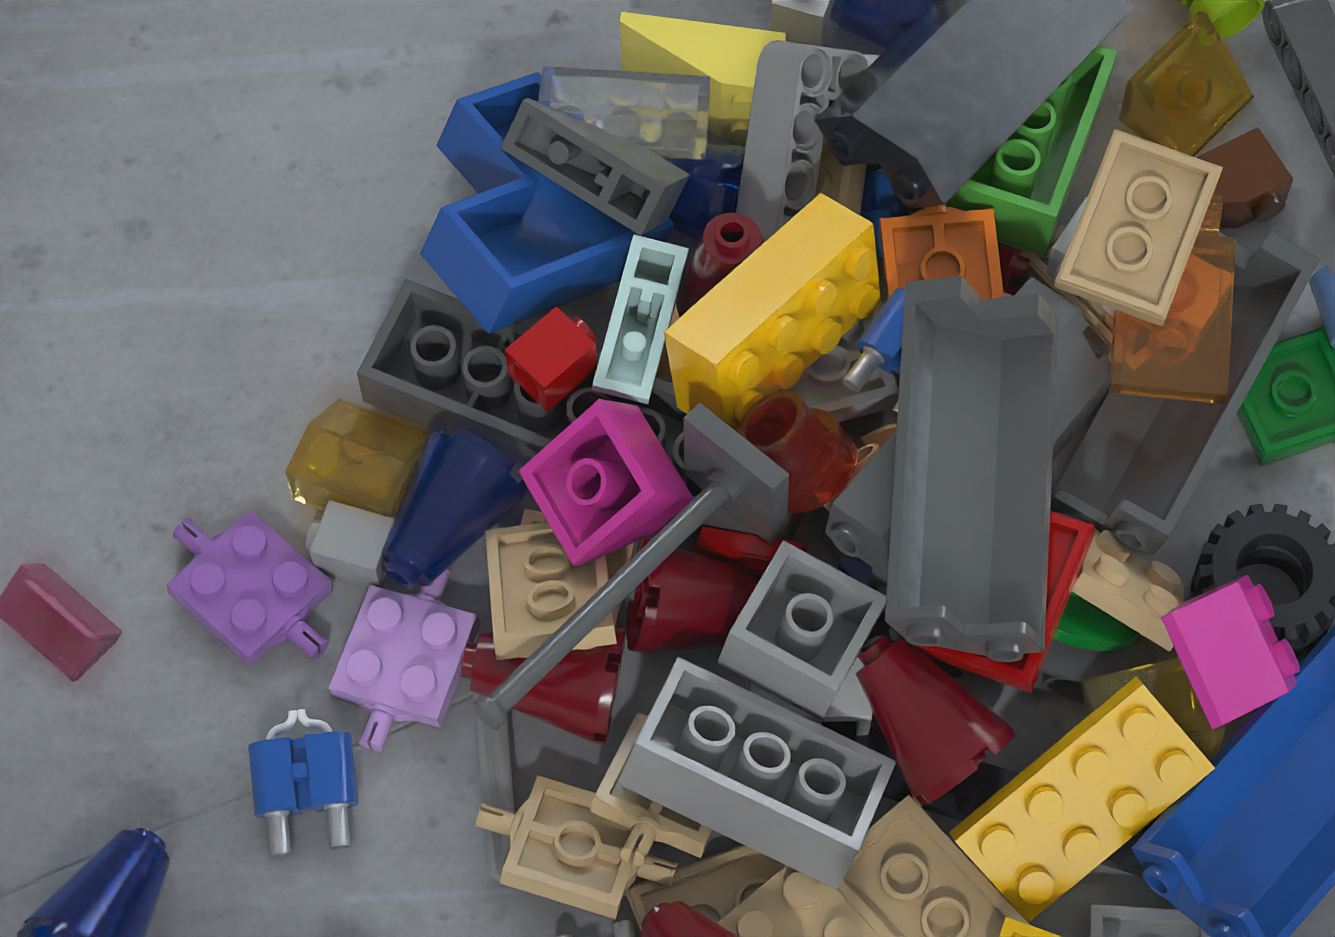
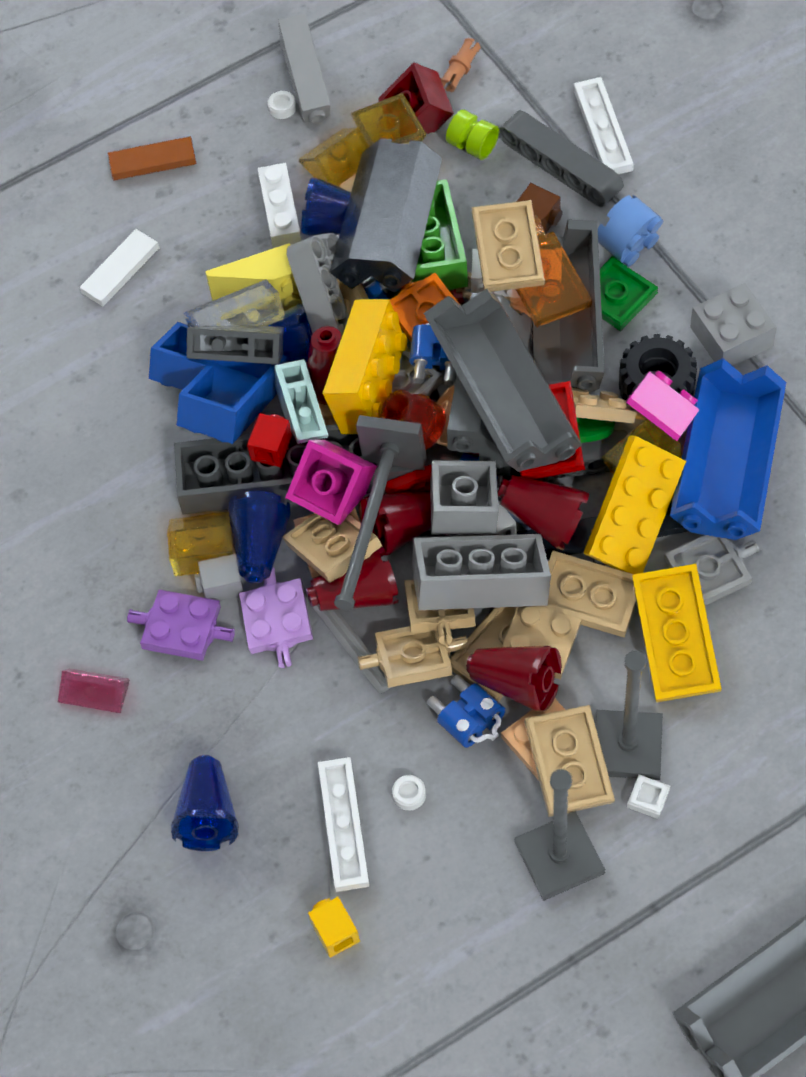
camera: 25 degrees left, 5 degrees down
(302, 777) = (261, 694): blue piece -> none
(1186, 90) = (485, 181): clear yellow slope -> none

